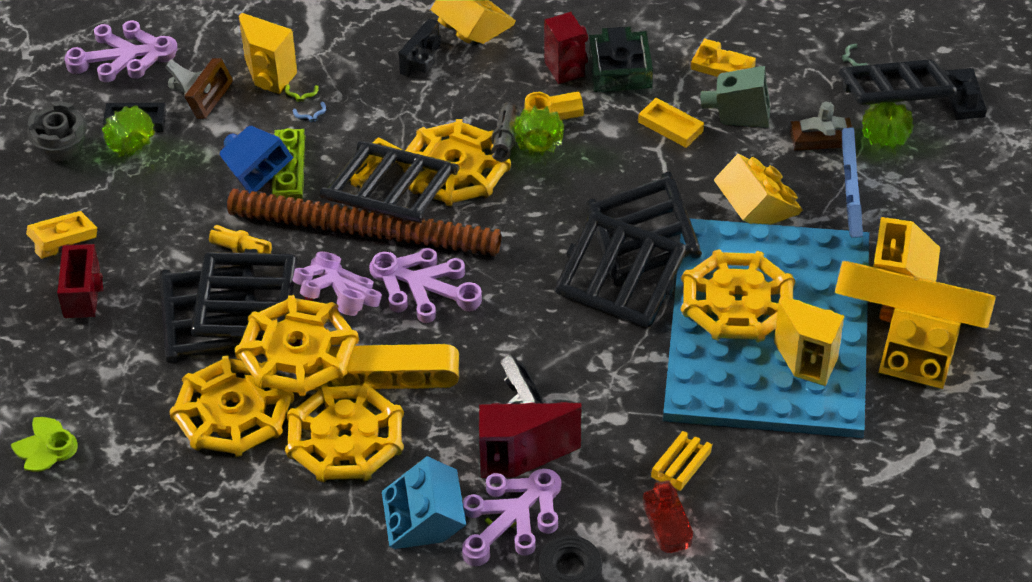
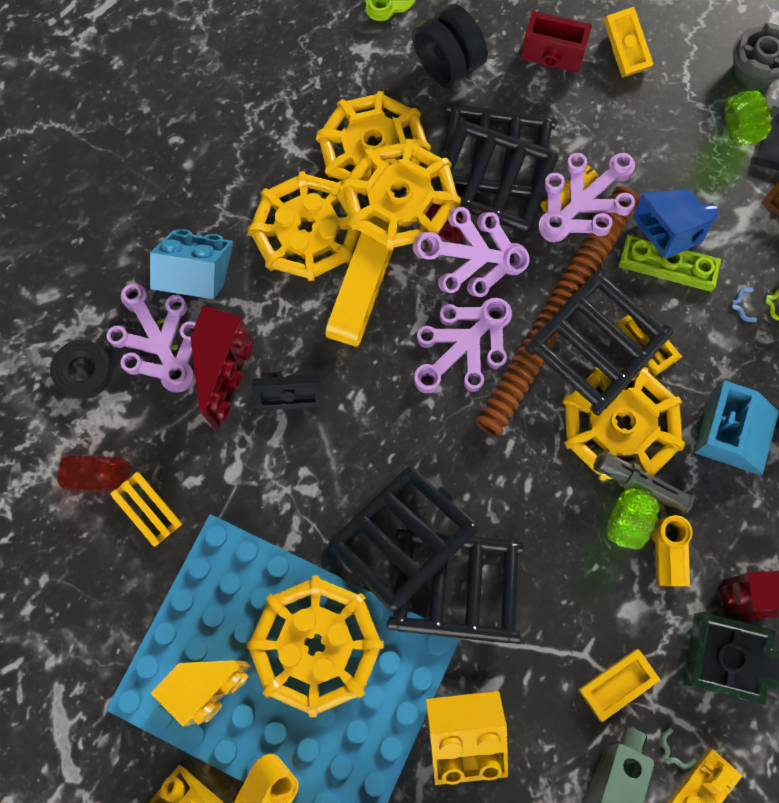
camera: 110 degrees right, 25 degrees up
(111, 354) = (450, 45): none -> black wheel
(284, 233) = (585, 200): none -> lavender plant
(431, 92) = (737, 427): none -> dark azure slope
(710, 87) = (672, 759): none -> sand green piece

